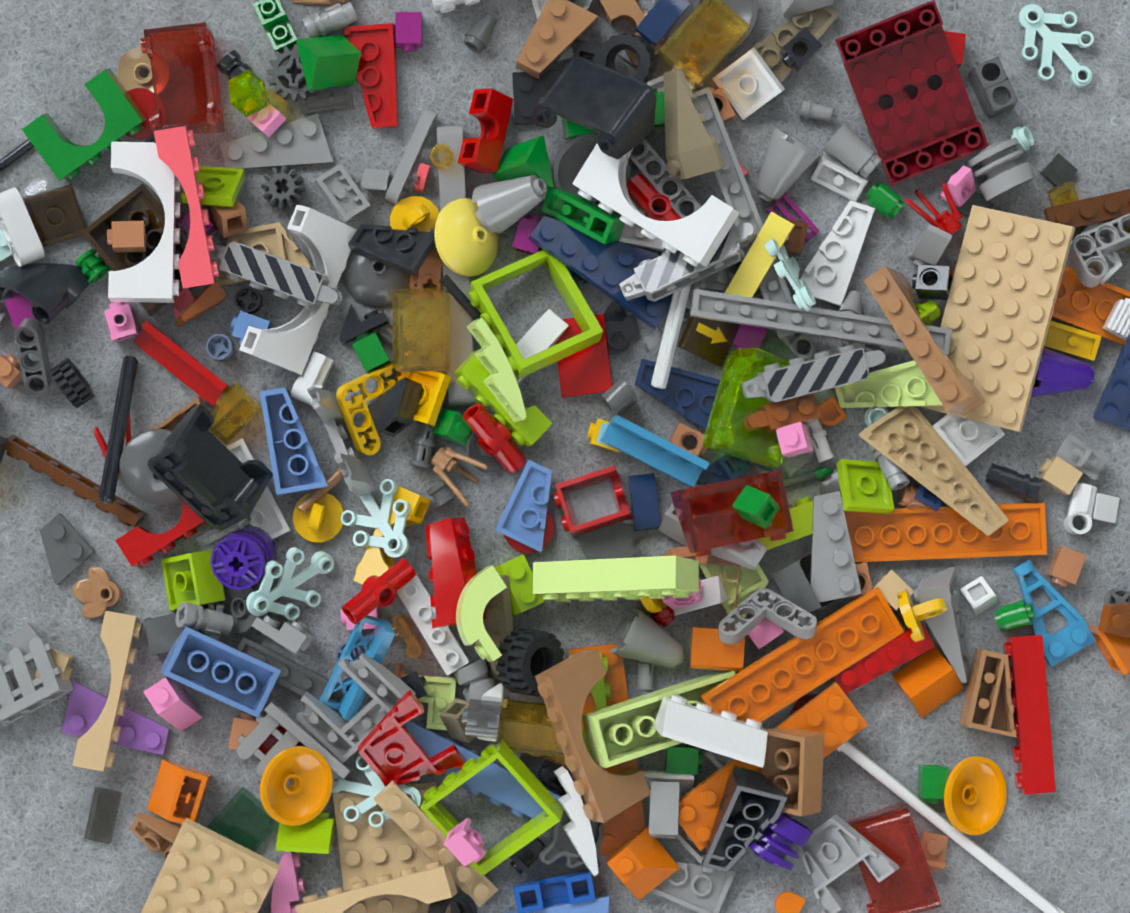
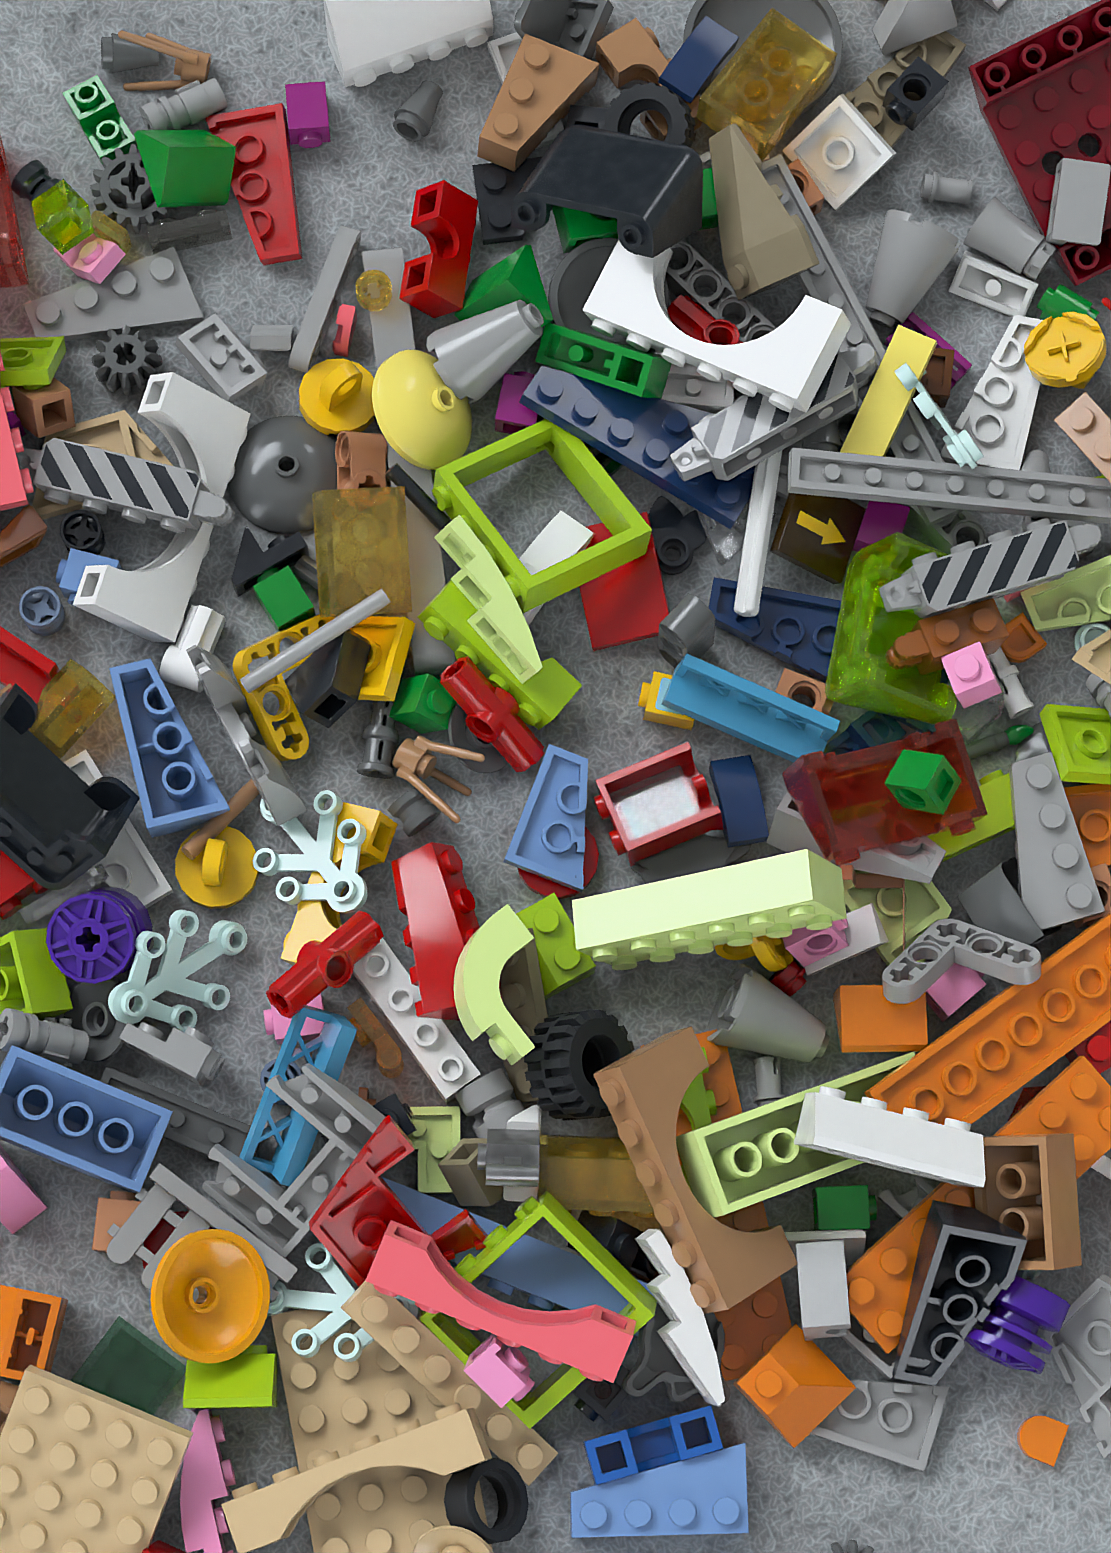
camera: 10 degrees left, 10 degrees down
(387, 386) = (315, 640): none -> light grey bar
(394, 247) = (312, 432): black wing -> none
(516, 831) = (583, 1337): none -> coral arch
(878, 230) = (1065, 350): none -> yellow tile
(897, 134) = (1078, 202): none -> light grey panel

